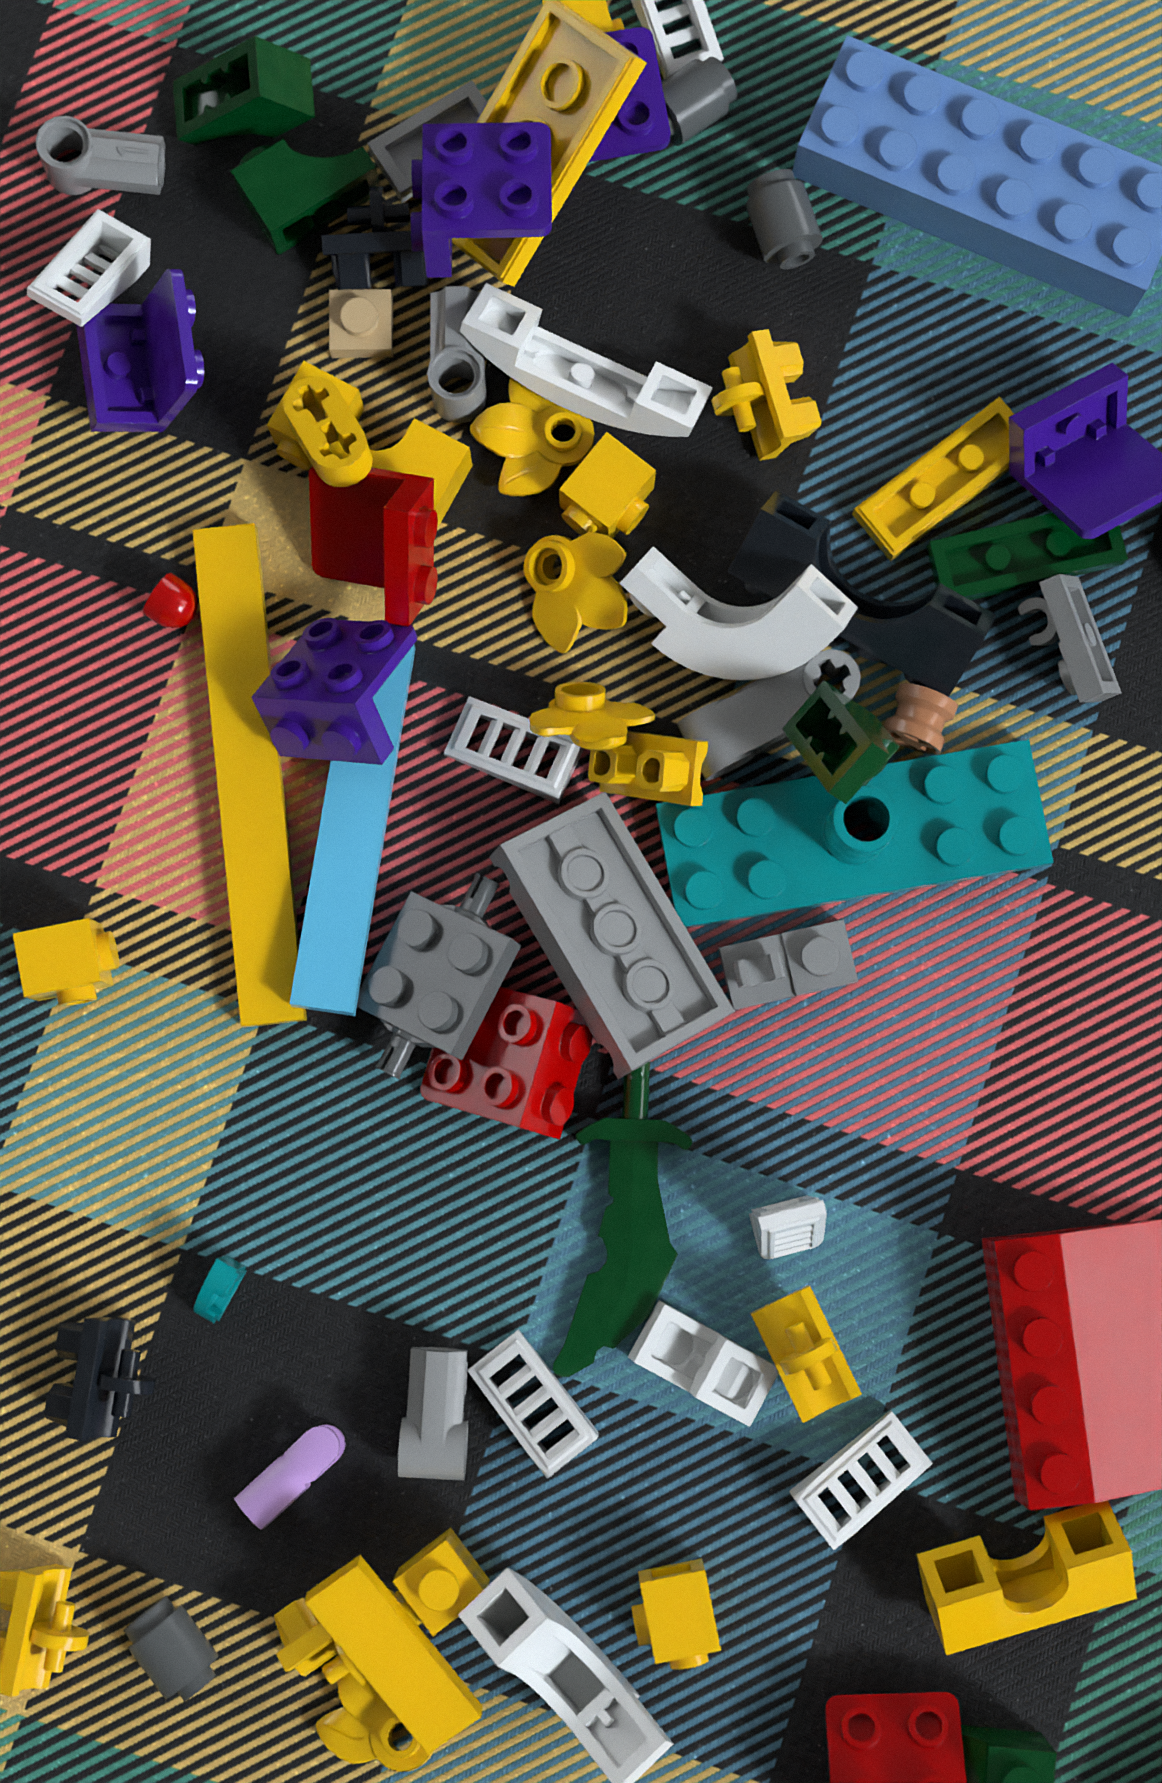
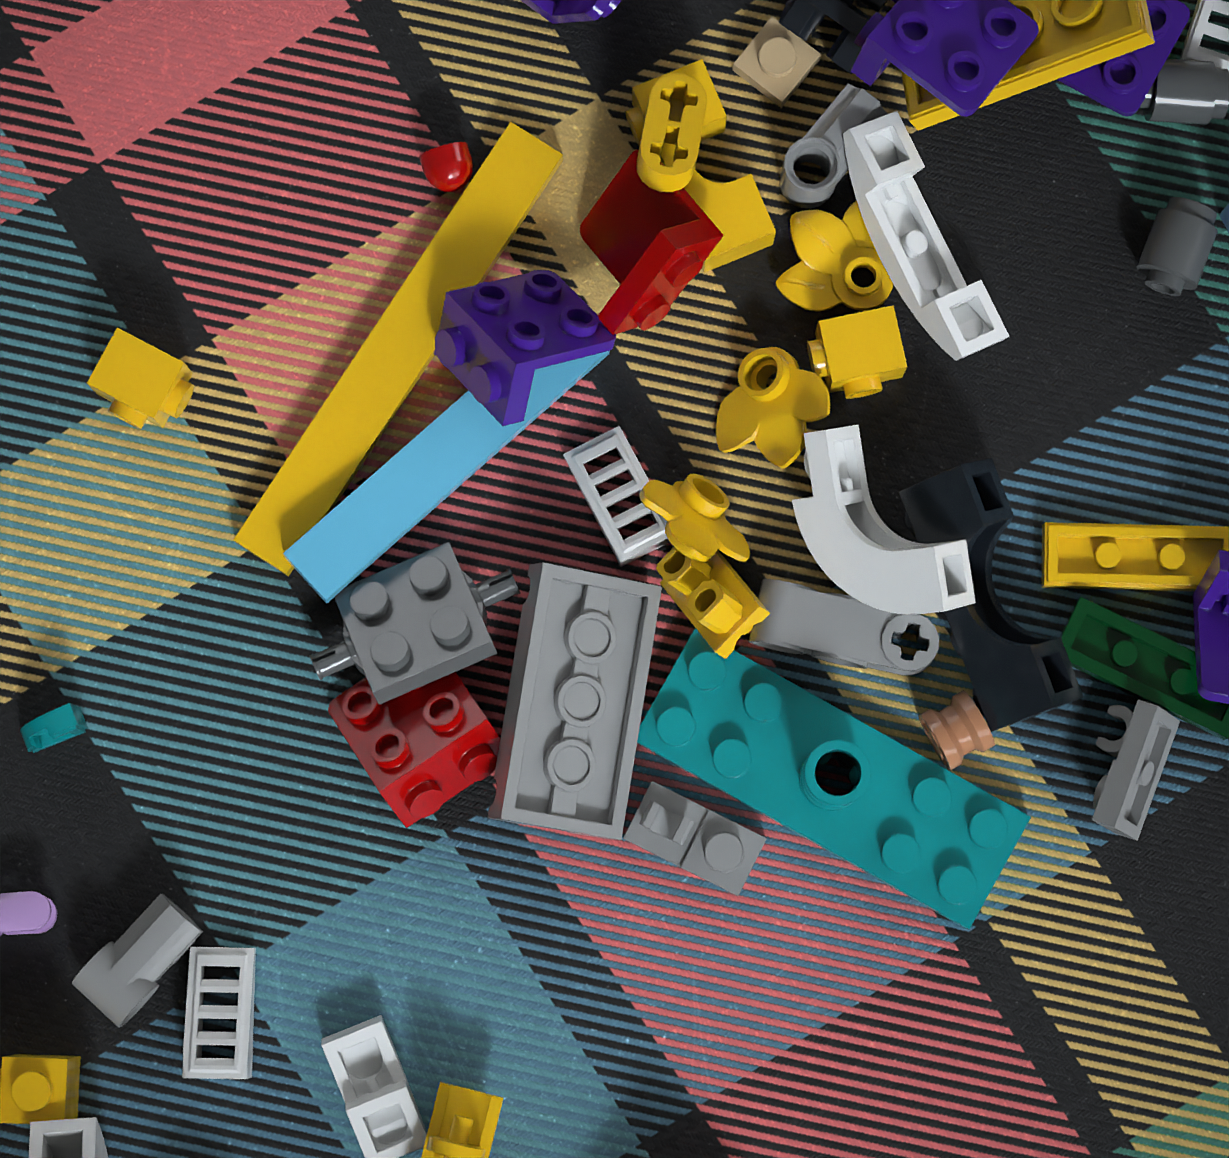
camera: 40 degrees right, 0 degrees up
(632, 1229) = (404, 944): dark green sword -> none
(760, 397) = (1040, 373): yellow hips -> none
(789, 1226) = (524, 1040): white slope -> none
(840, 741) = (871, 697): dark green arch -> none

